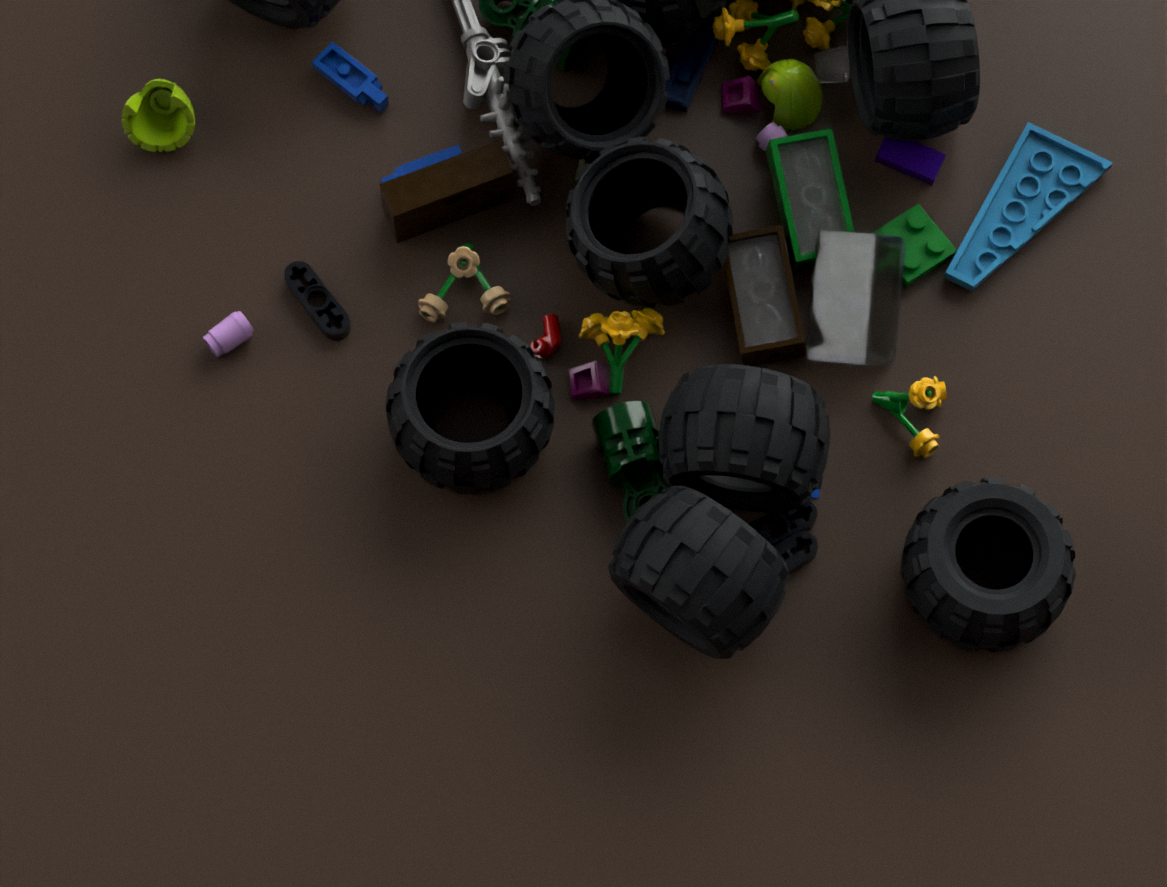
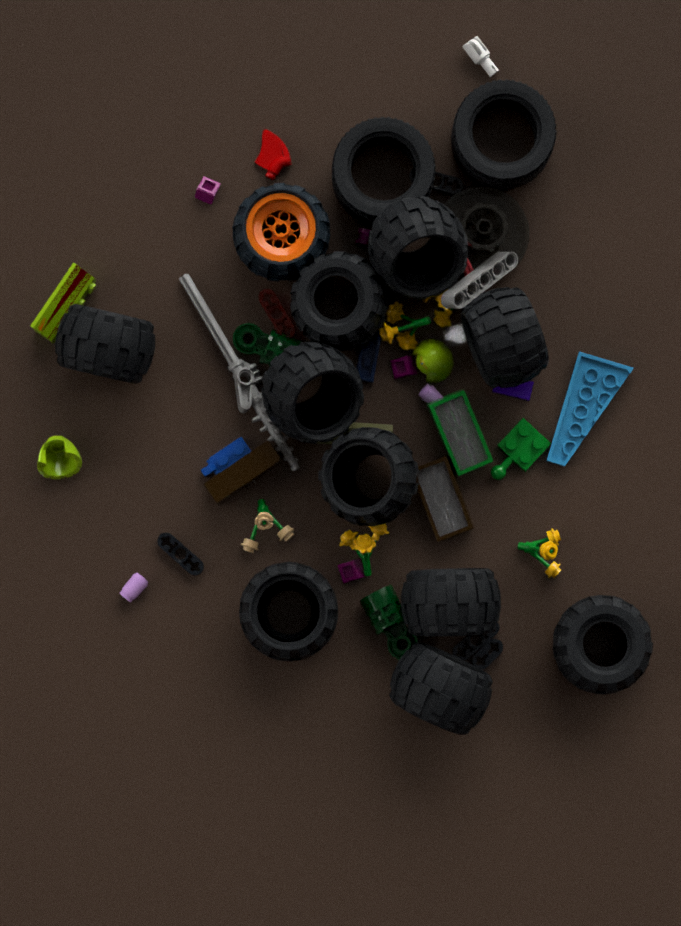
camera: 15 degrees left, 15 degrees up
(350, 77) = (165, 405): blue hinge -> none
(550, 340) = (323, 549): red arm -> none
(856, 298) = (497, 493): clear smoke windscreen -> none

